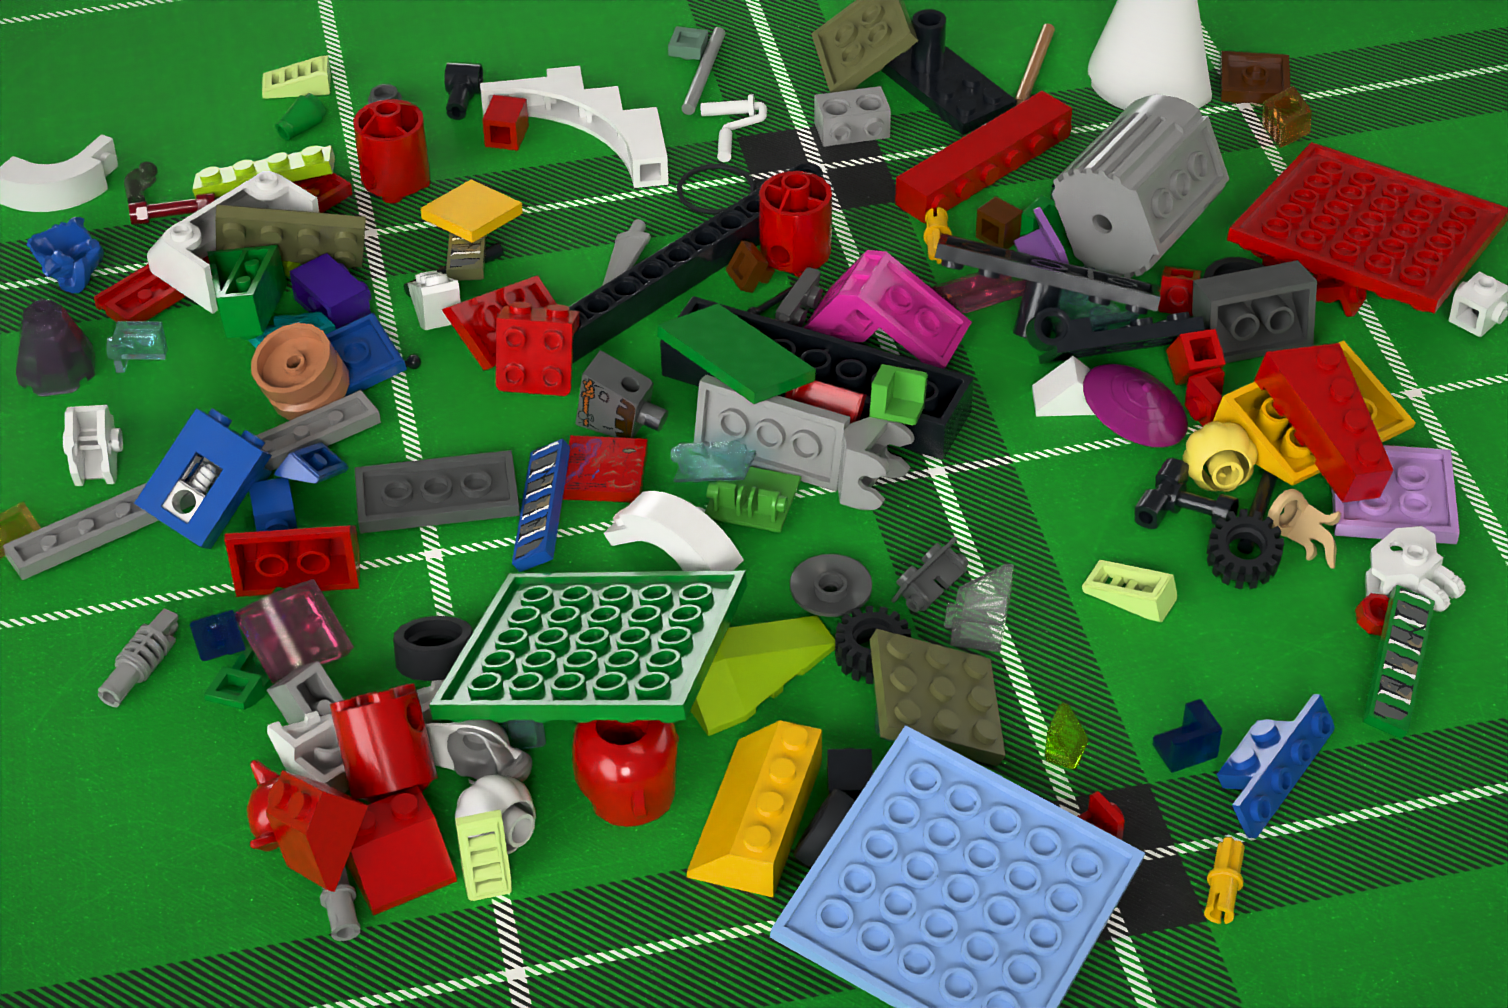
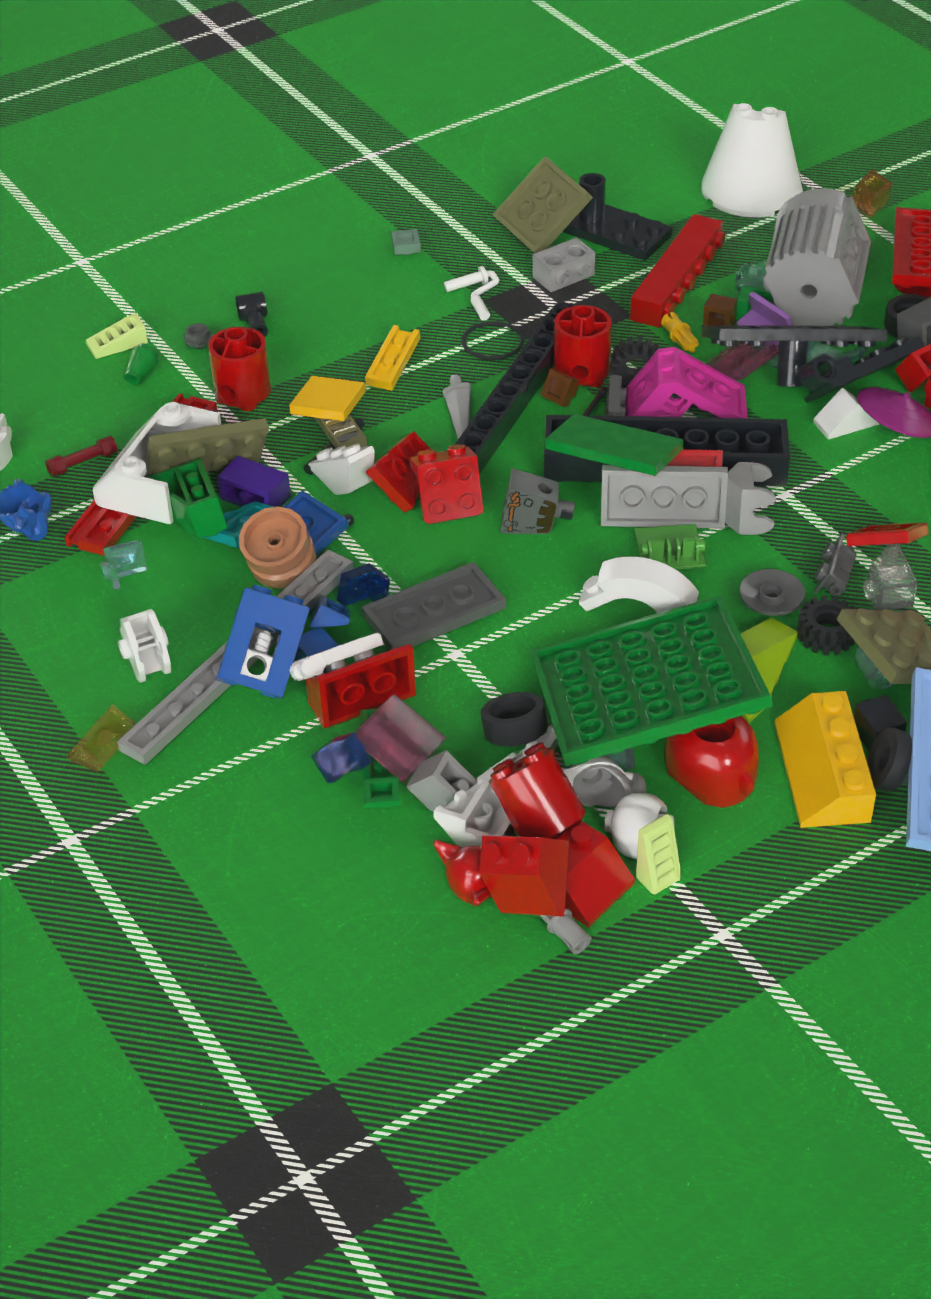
camera: 20 degrees left, 0 degrees up
(52, 350) = (58, 586): clear purple cone -> none
(139, 181) = (39, 442): clear smoke arm -> none
(140, 657) = (283, 795): light grey hinge -> none
(273, 517) = (334, 657): none -> white hinge
(298, 166) = (139, 412): lime plate -> none
(370, 441) = (362, 583): none -> clear blue bracket
(505, 122) = (306, 330): red brick -> none
(541, 505) = (521, 595): blue tile -> none
(582, 181) = (392, 358): none -> yellow hinge
(598, 111) = (372, 305): white arch -> none
(605, 468) = (547, 557): red tile -> none
(703, 71) = (428, 260): light grey bar -> none
(723, 461) = (642, 526): clear light blue hinge -> none
(841, 243) = (630, 351): none -> black tyre
(898, 394) = (750, 442): bright green panel -> none
(1007, 553) = (887, 534): none -> red tile
(1035, 63) = (666, 200): medium nougat bar -> none
(1177, 290) = (874, 319): red bracket -> none
(1252, 76) = (828, 172): reddish brown plate -> none

